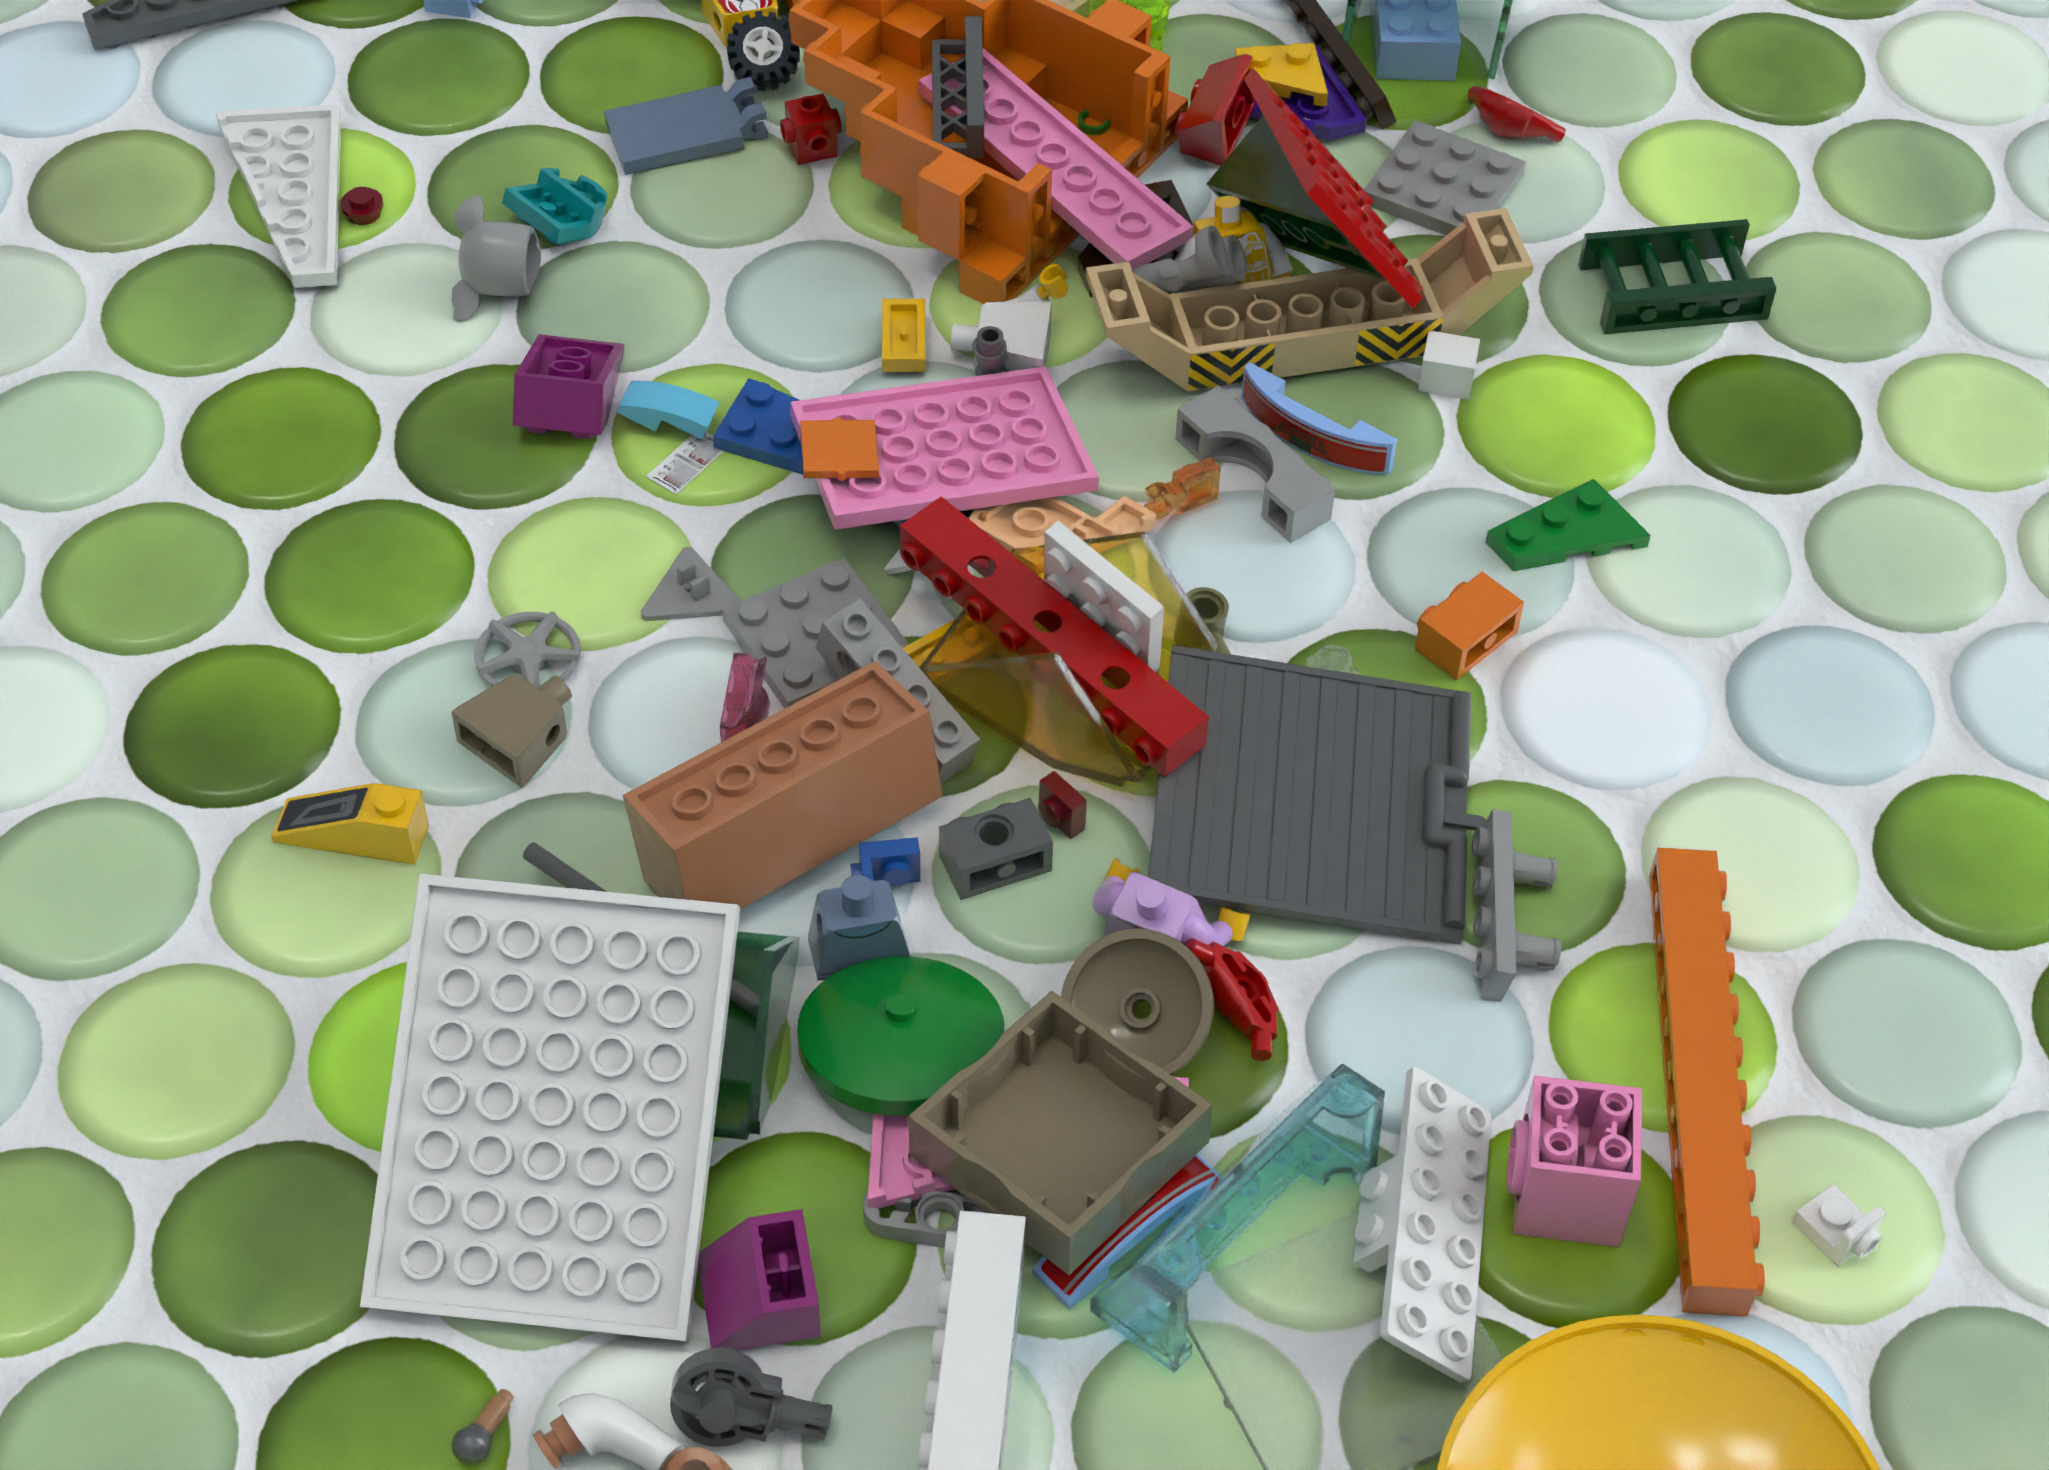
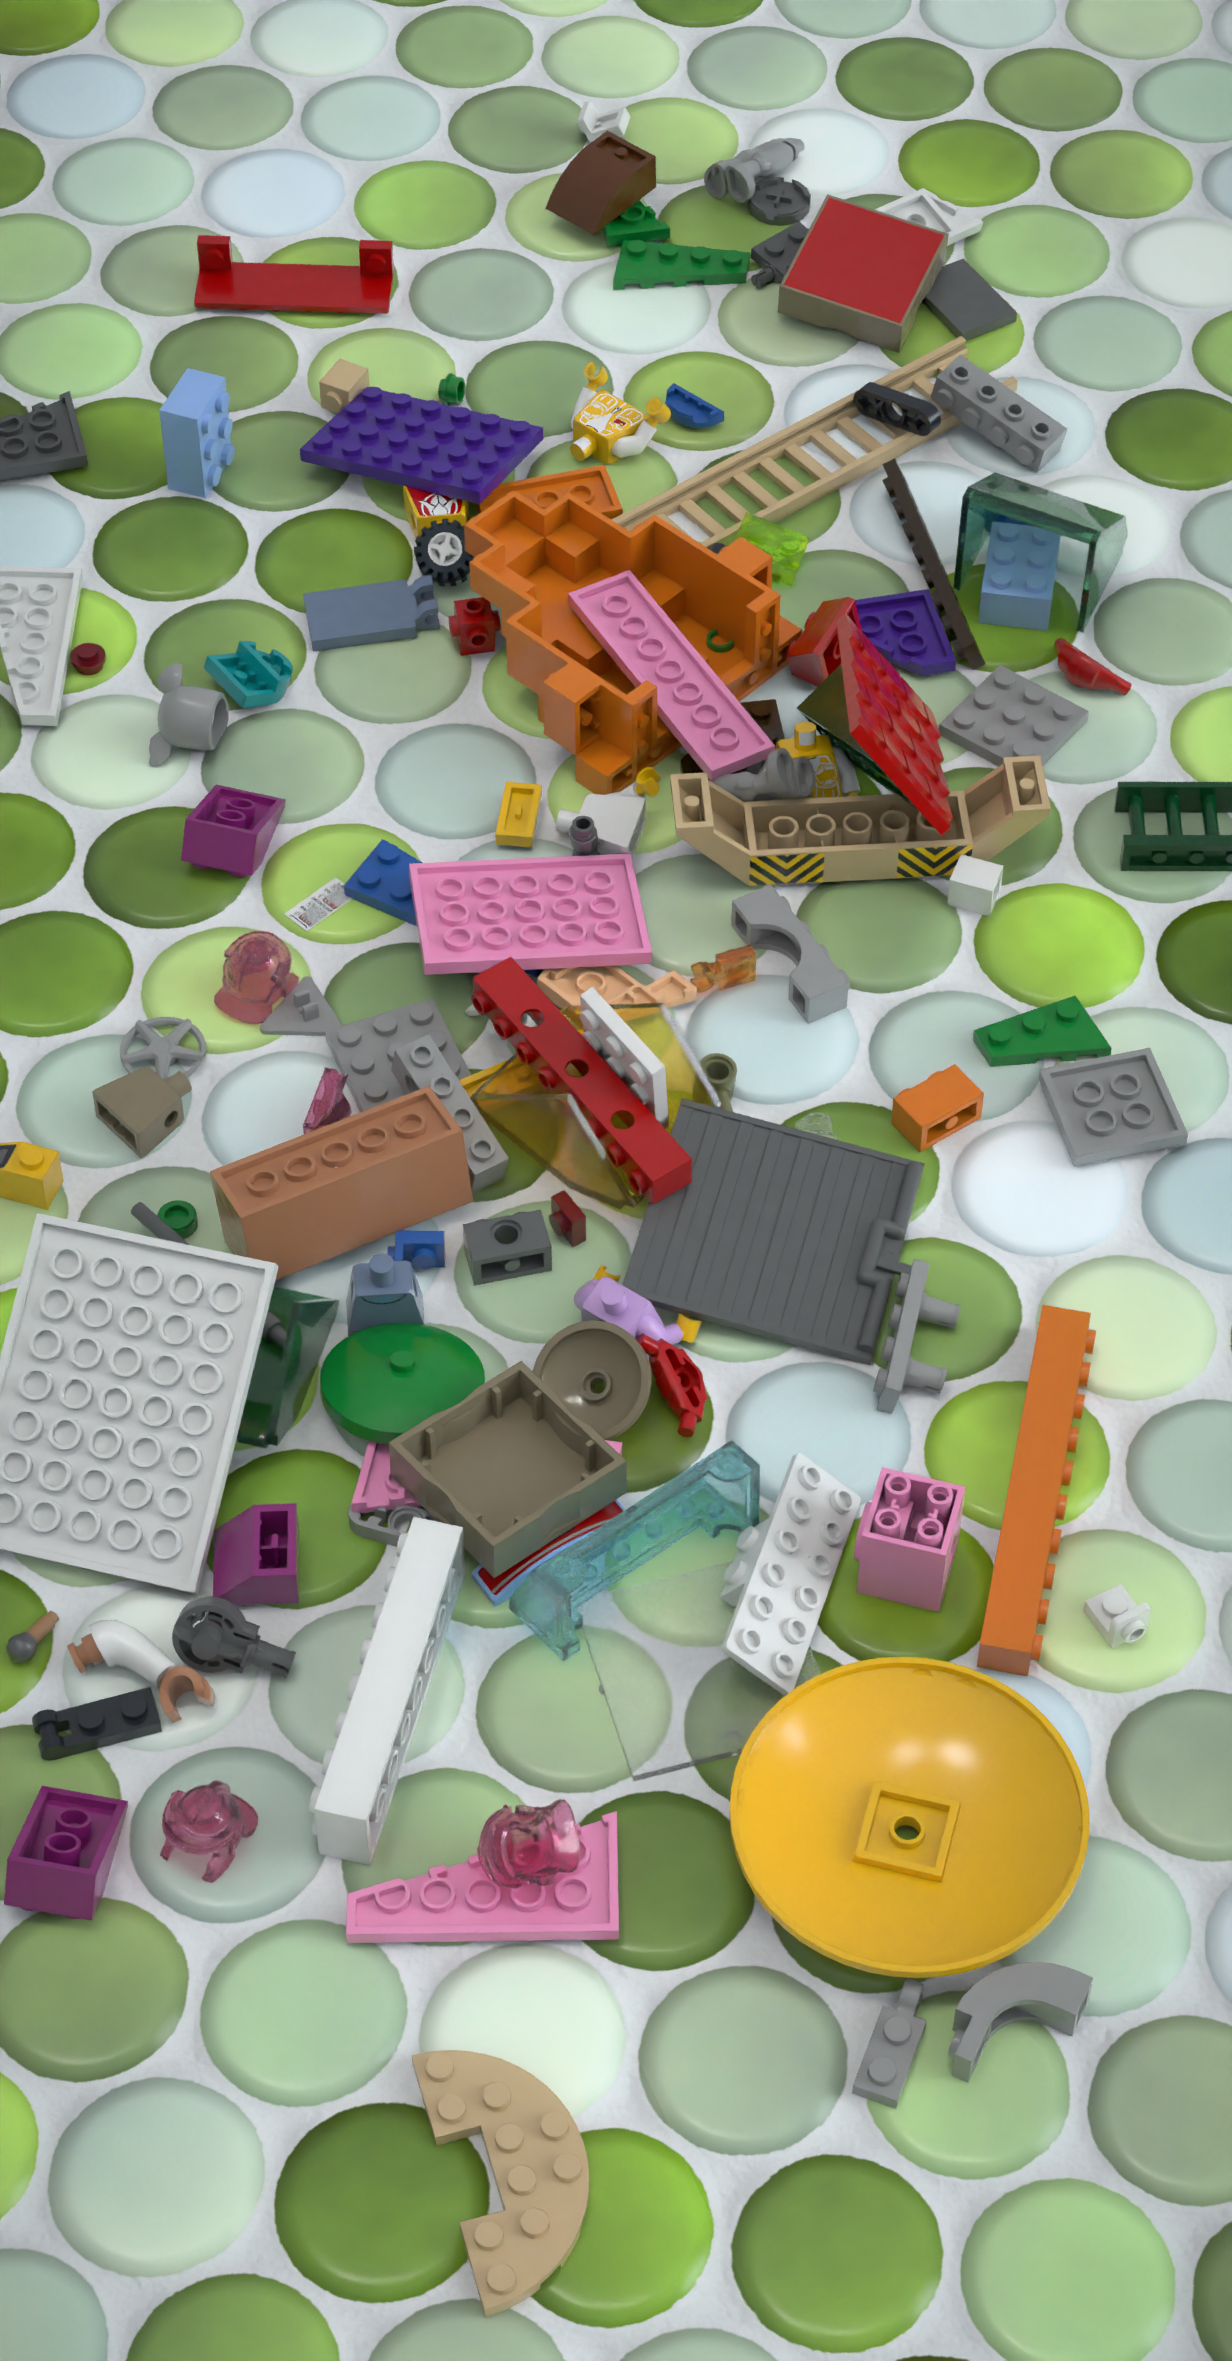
camera: 10 degrees right, 0 degrees up
(583, 854) = (180, 1217): none -> green tile
(626, 553) = (255, 977): none -> clear pink helmet
(655, 401) = (322, 859): medium azure slope -> none
(839, 449) = (440, 908): orange piece -> none
(971, 89) = (604, 613): dark grey fence -> none
(1289, 69) = (892, 610): yellow wing -> none
(1355, 449) = (877, 949): slope -> none
(1670, 603) = (1112, 1106): none -> light grey plate

